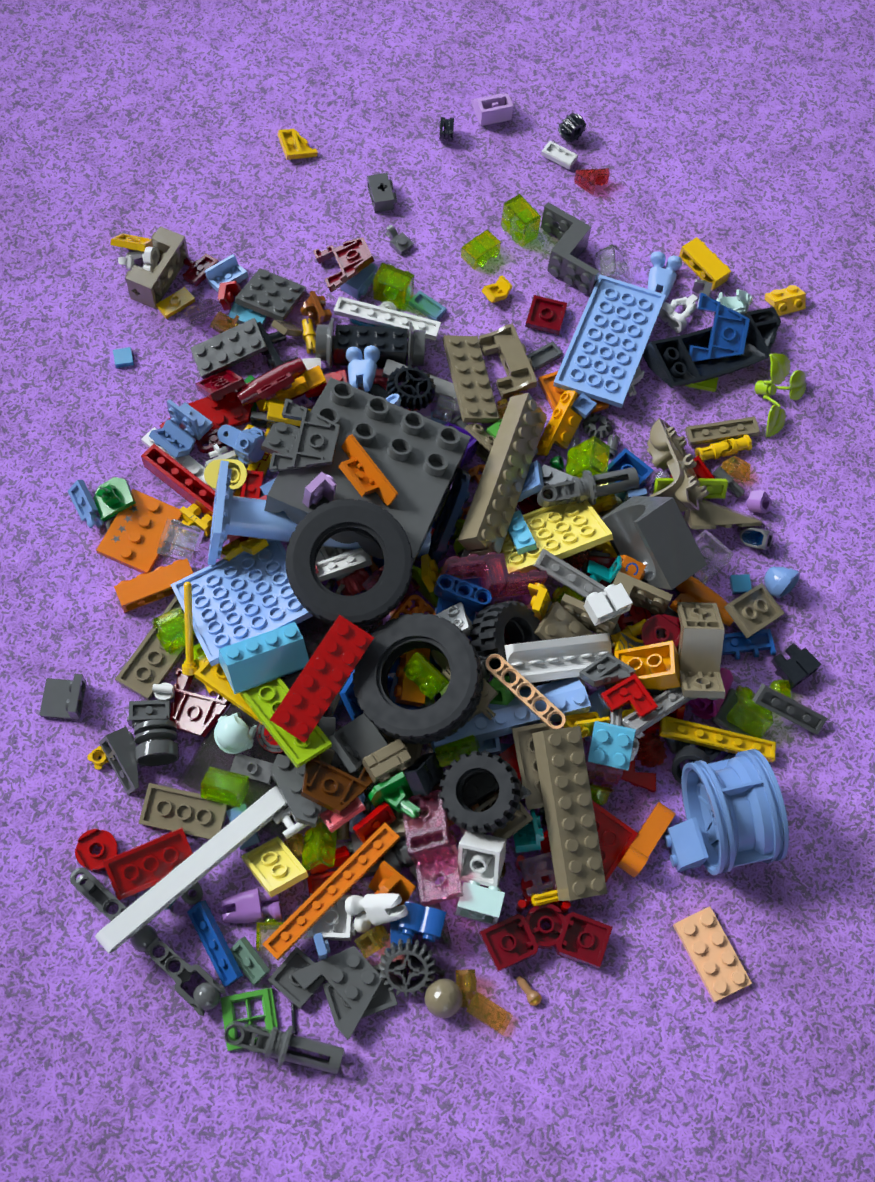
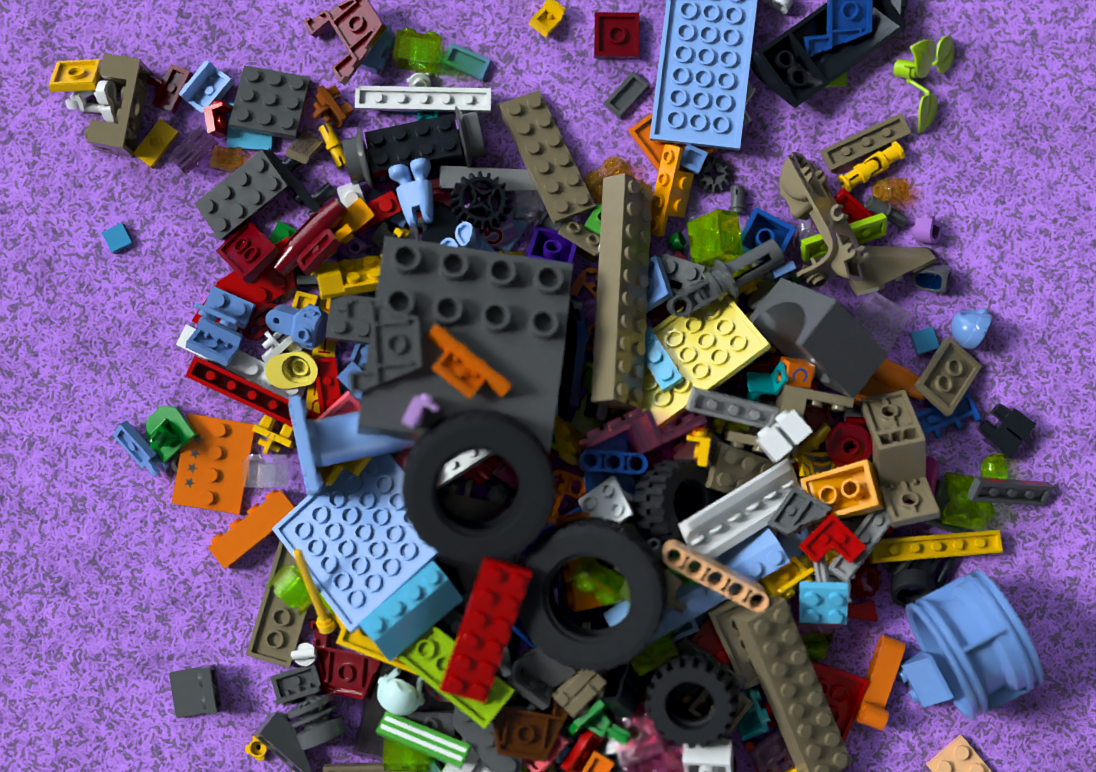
camera: 15 degrees left, 20 degrees up
(242, 774) = (423, 739): none -> bright green tile
(513, 358) = (592, 113): dark tan bracket -> none

